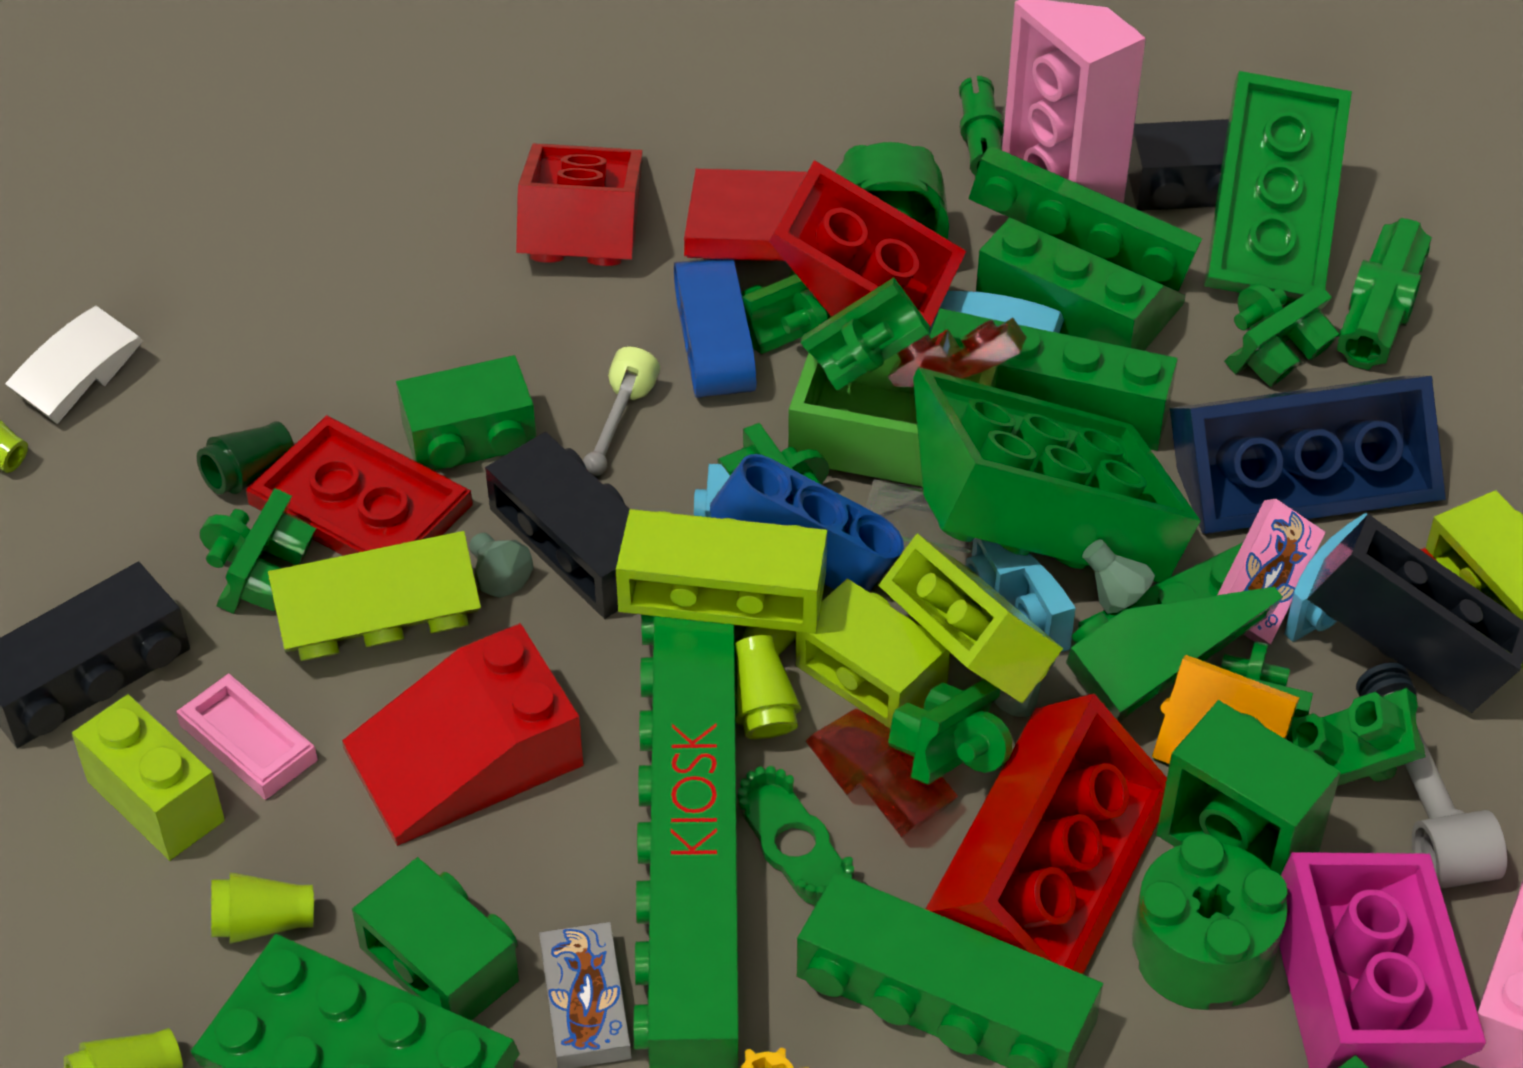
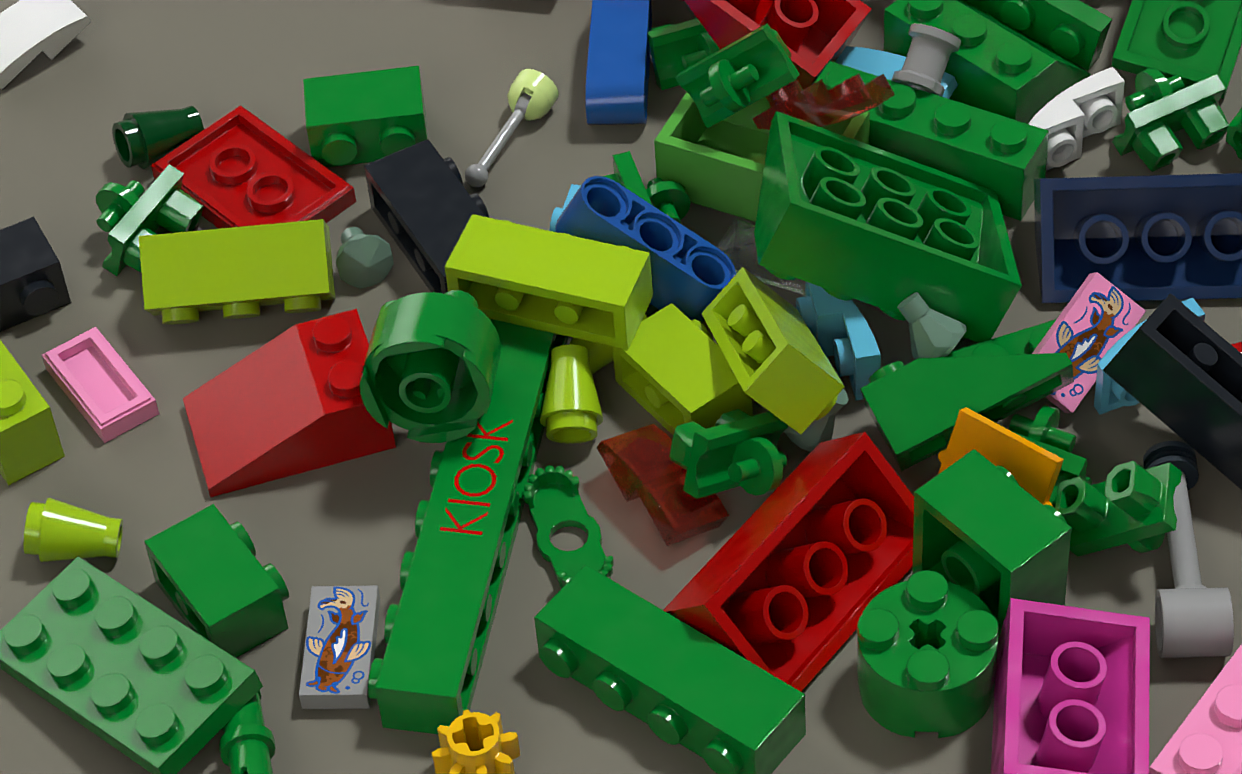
camera: 15 degrees right, 0 degrees up
(628, 678) = (431, 365): none -> green brick
(1040, 295) = (927, 58): none -> light grey bush
(1196, 332) = (1080, 112): none -> white slope

